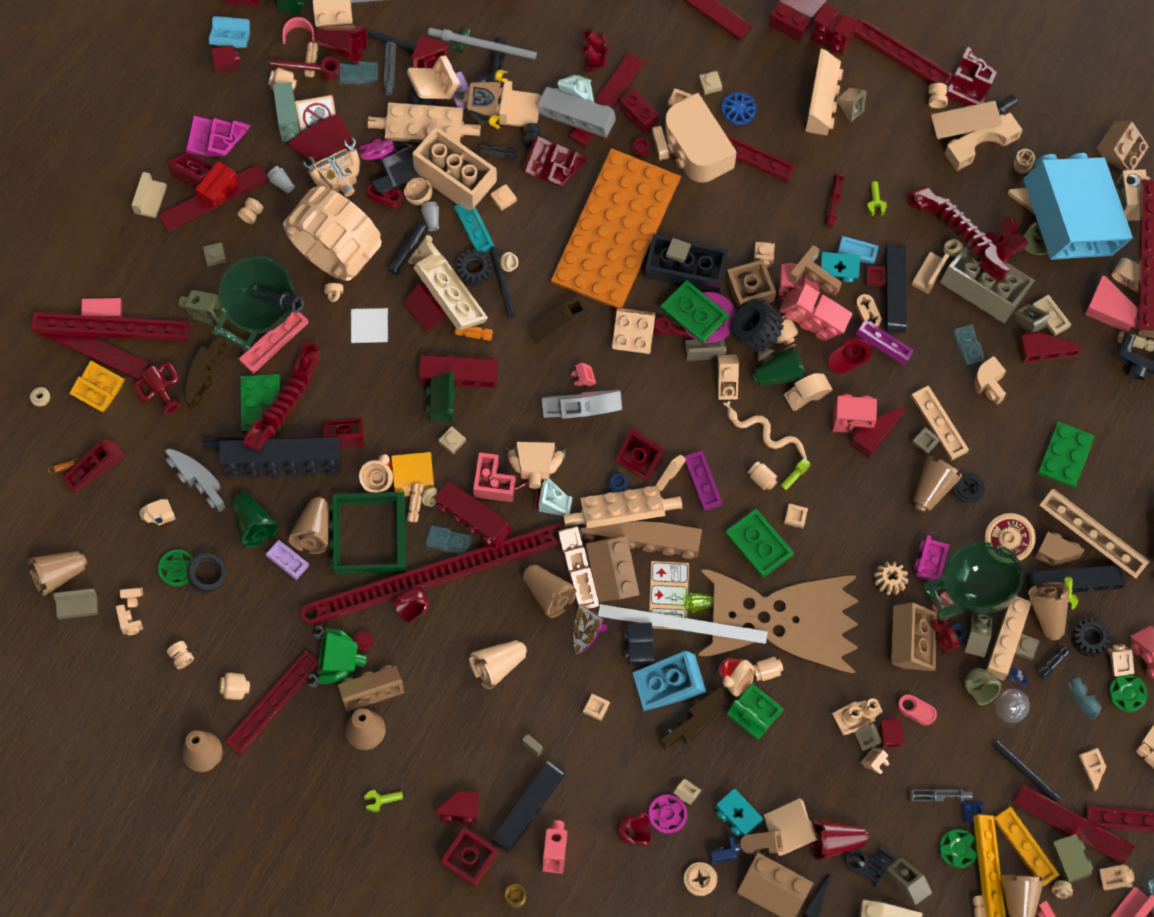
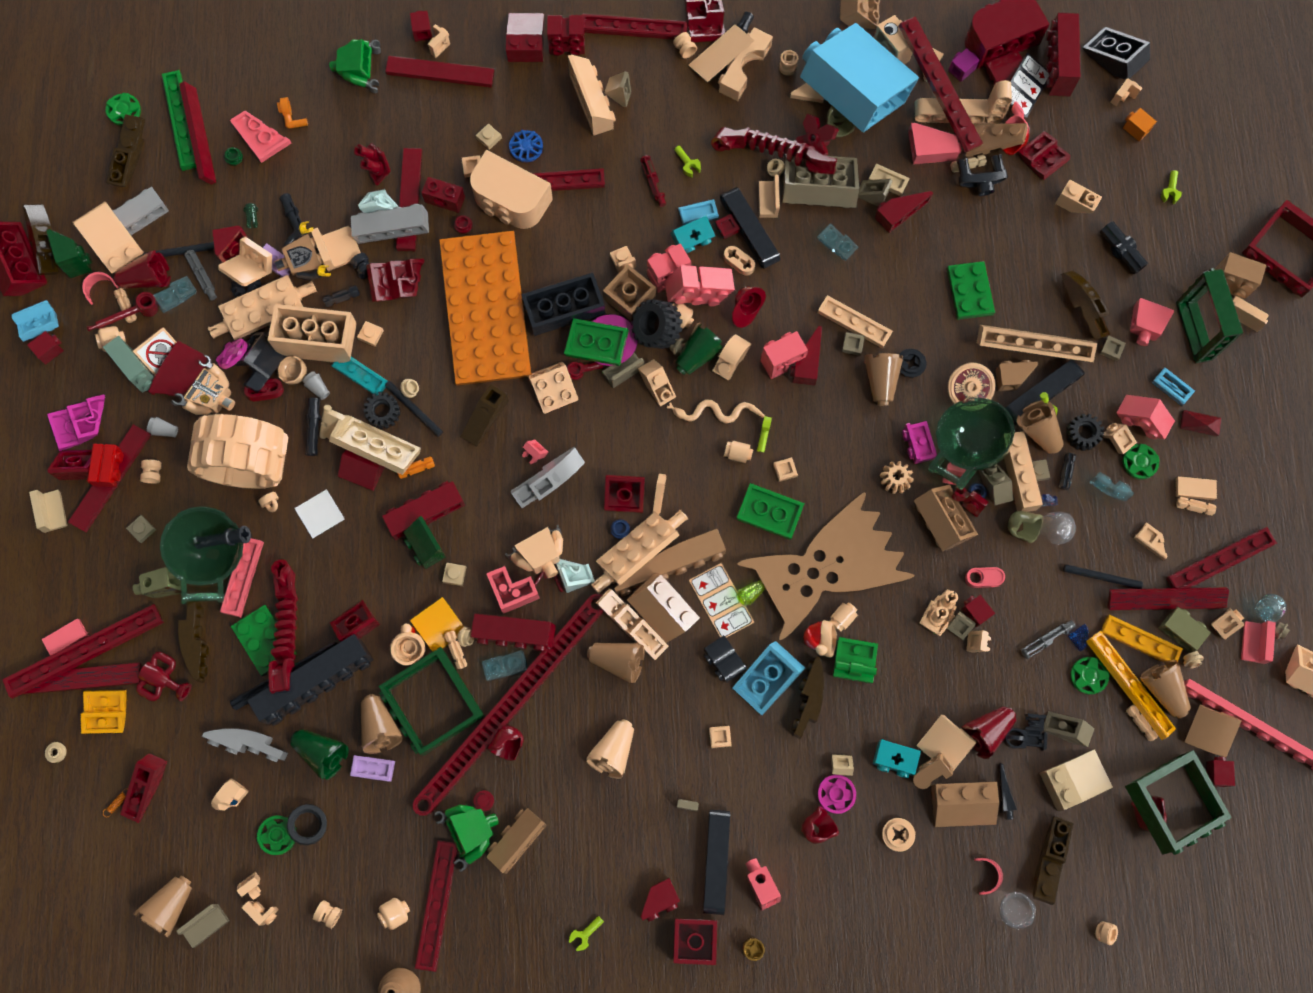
camera: 30 degrees left, 5 degrees up
(365, 729) = (542, 881): medium nougat cone -> none
(447, 35) = (235, 217): light grey bar -> none
(586, 629) = (671, 674): shield -> none
(659, 143) = (477, 212): light nougat beam -> none
(678, 250) = (551, 296): dark tan tile -> none
(683, 623) = (749, 620): white sticker -> none
(703, 481) = (690, 485): magenta plate -> none
(722, 855) = (904, 802): dark blue bracket -> none
(815, 273) = (682, 251): medium nougat bracket -> none
(884, 342) = (769, 278): magenta plate -> none
(987, 378) = (869, 263): light nougat brick -> none

